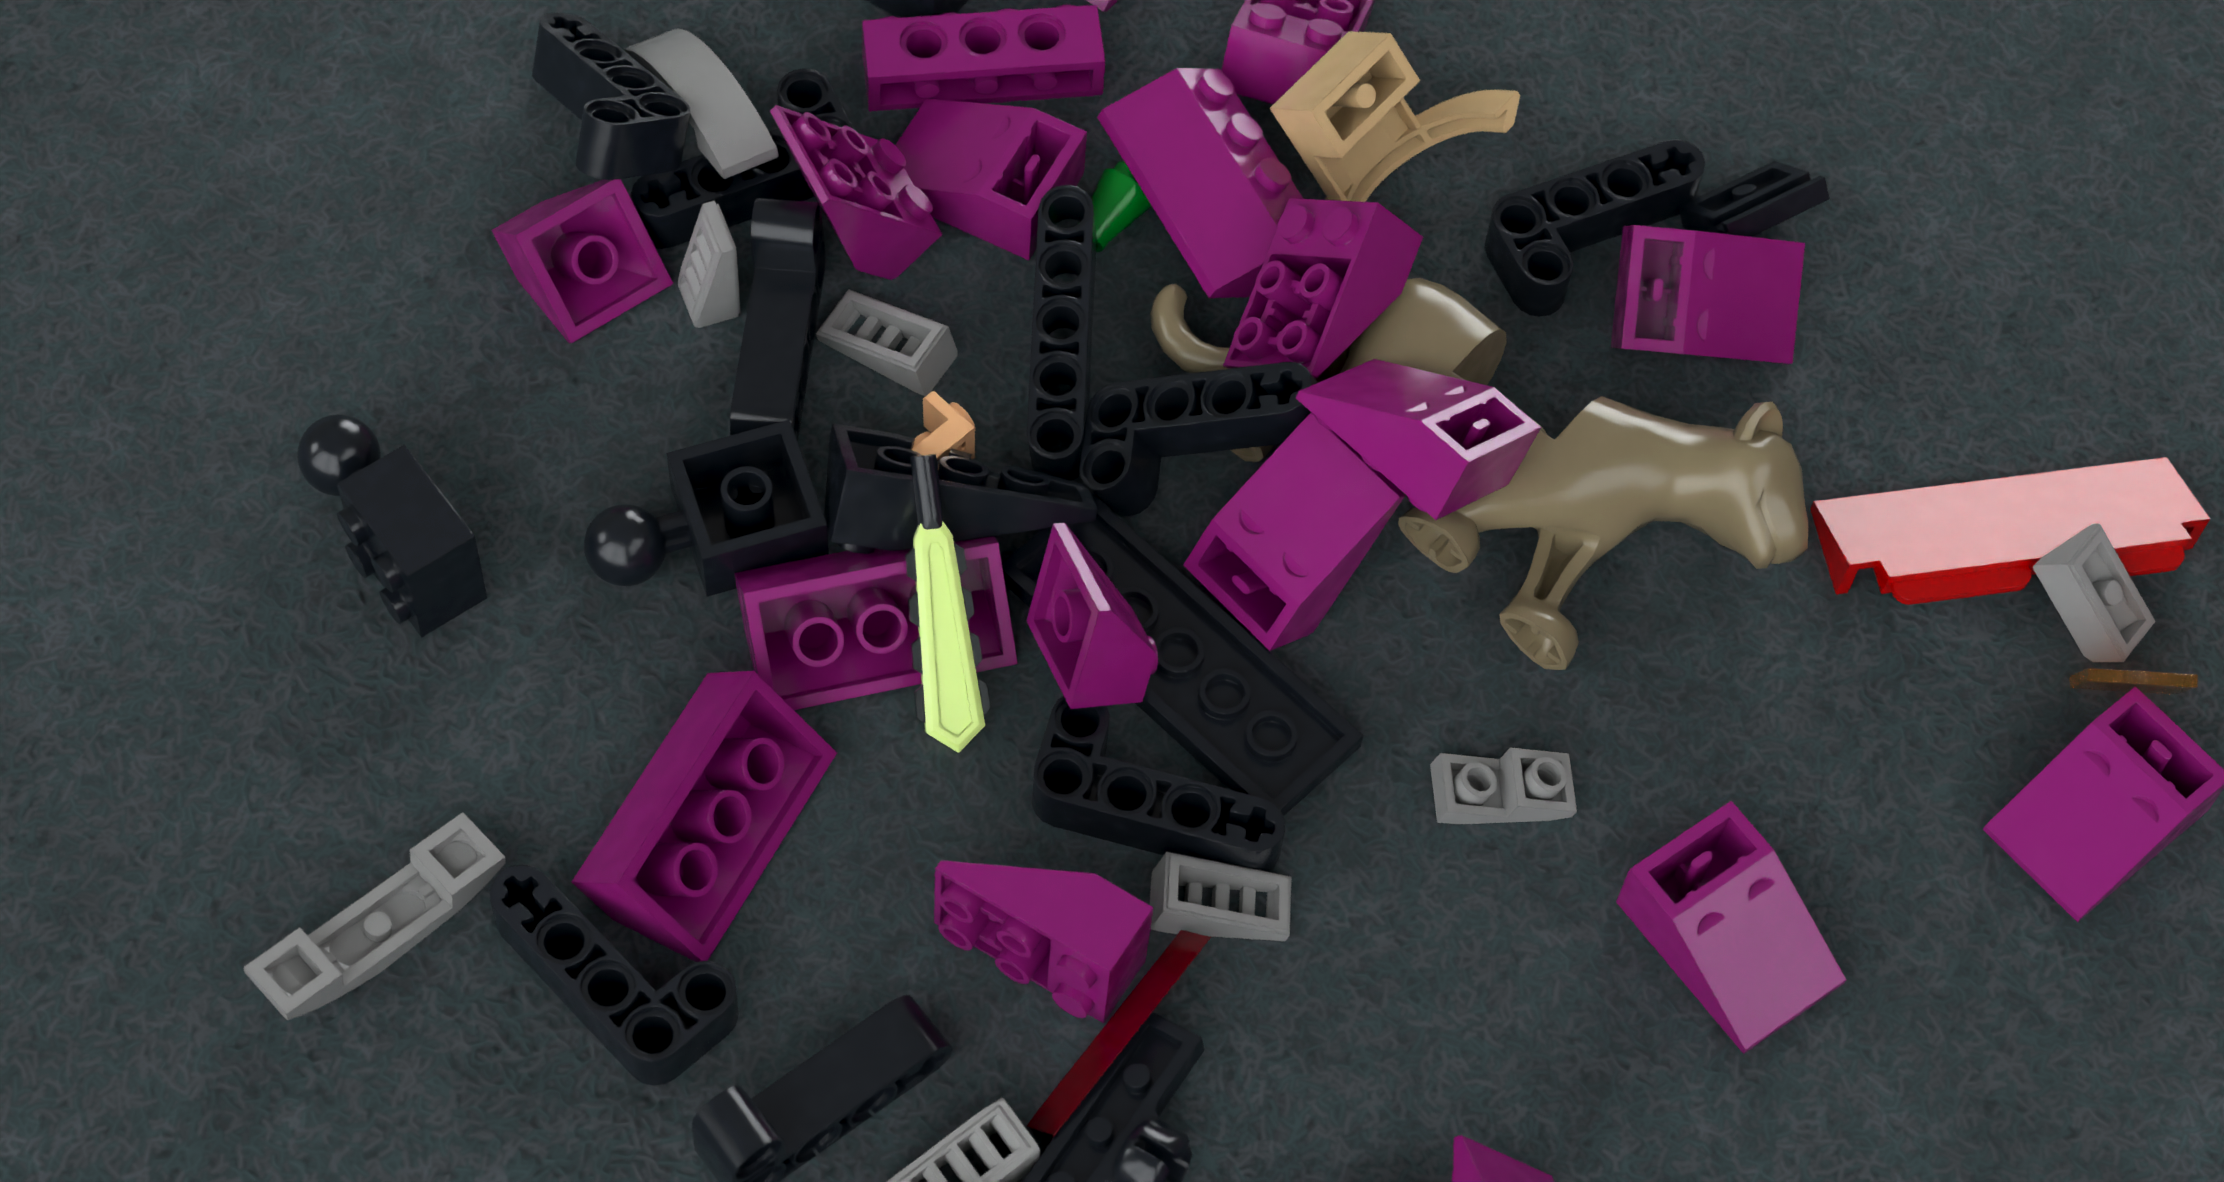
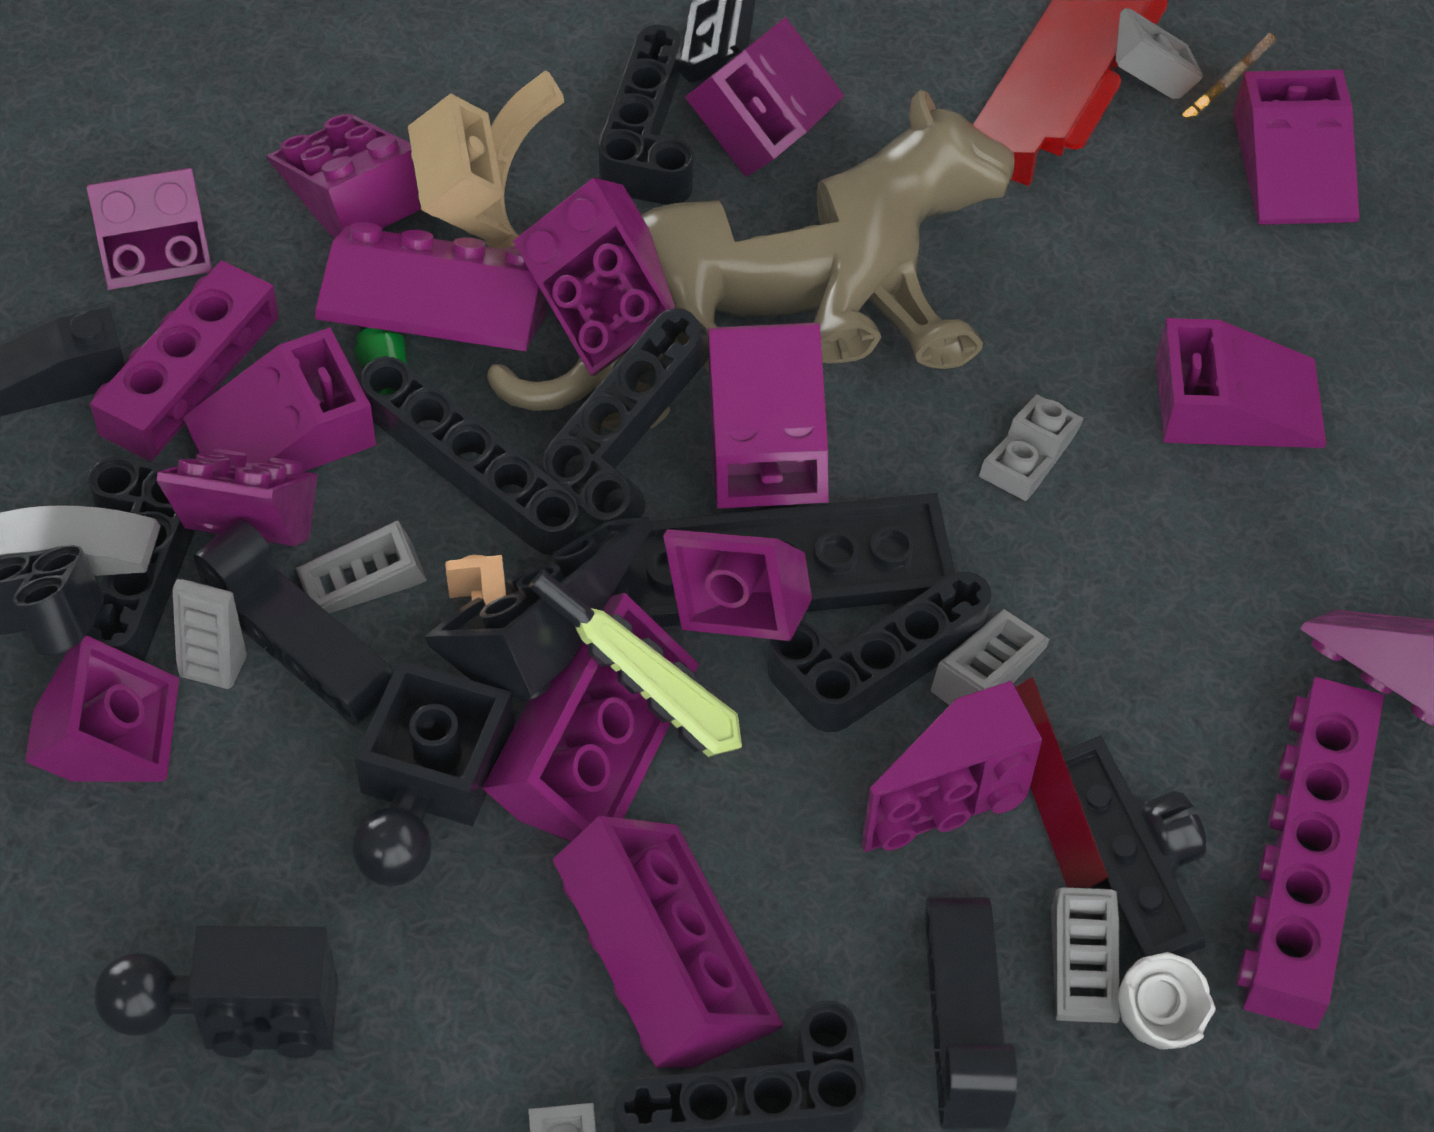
camera: 50 degrees left, 5 degrees down
(1425, 431) = (788, 271): magenta slope -> none

